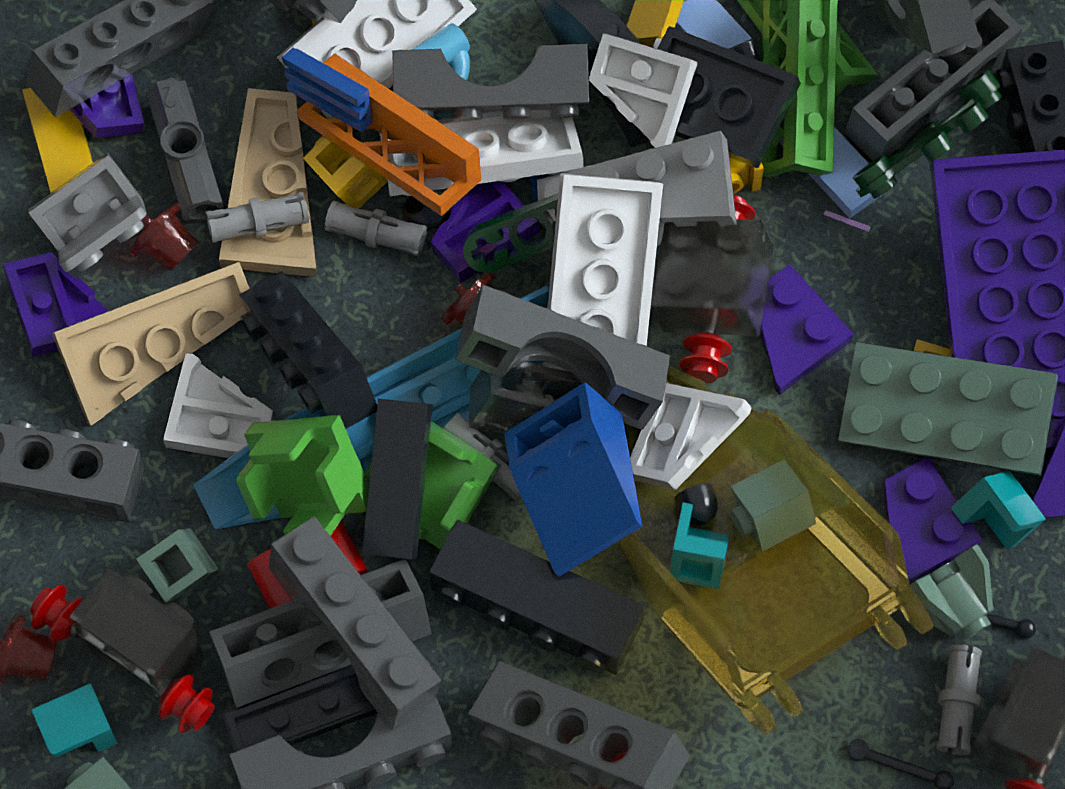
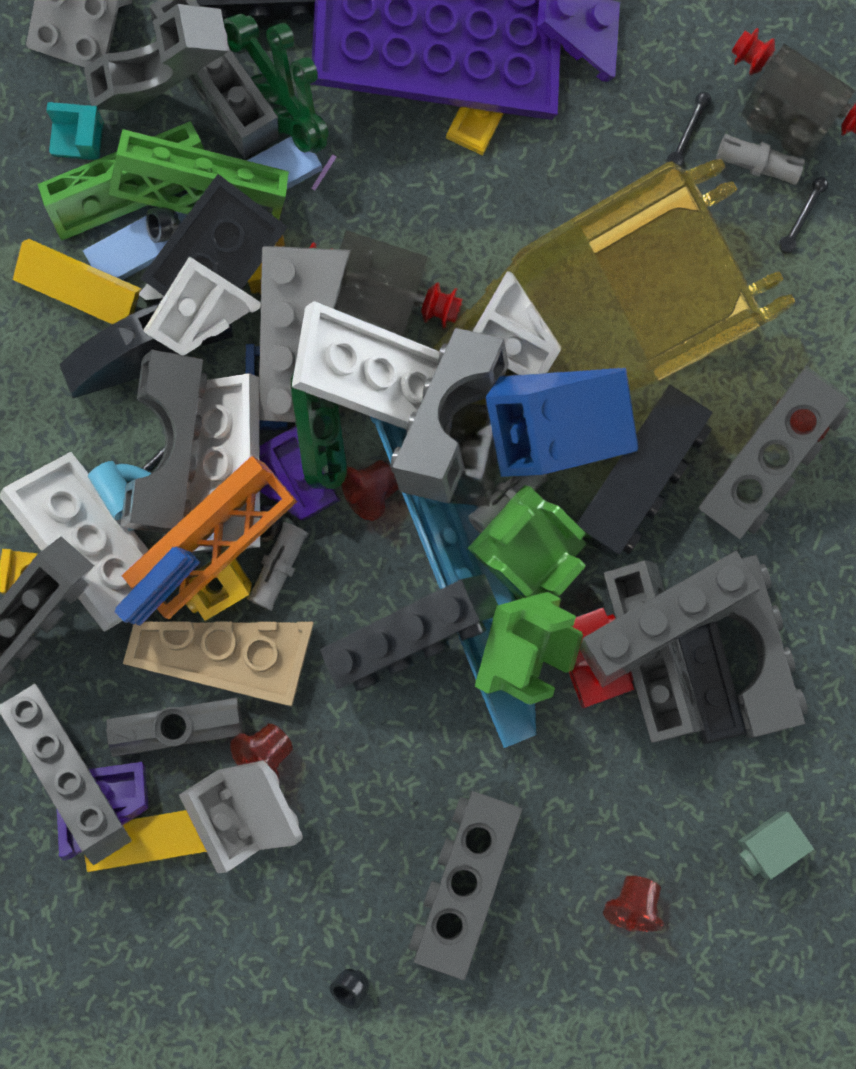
camera: 85 degrees left, 15 degrees up
(48, 299) = (317, 861): dark purple wing -> none
(74, 722) = (706, 866): teal panel -> none
(134, 637) = (647, 806): clear smoke brick -> none
(137, 343) = (361, 789): tan wing -> none
(177, 564) = (579, 766): sand green brick -> none
(210, 413) = (437, 722): white wing -> none
(257, 217) = (262, 666): light grey pin -> none
(397, 479) = (541, 568): black tile -> none
(697, 553) = (618, 337): teal panel -> none
(703, 500) = (574, 332): black hinge -> none
(772, 505) = (589, 271): sand green brick -> none
(798, 329) = (423, 226): dark purple wing -> none
(922, 515) = (603, 157): dark purple wing -> none
(948, 408) = (522, 117): sand green plate -> none
(958, 594) = (680, 138): sand green brick -> none
(1003, 506) = (609, 92): teal panel -> none

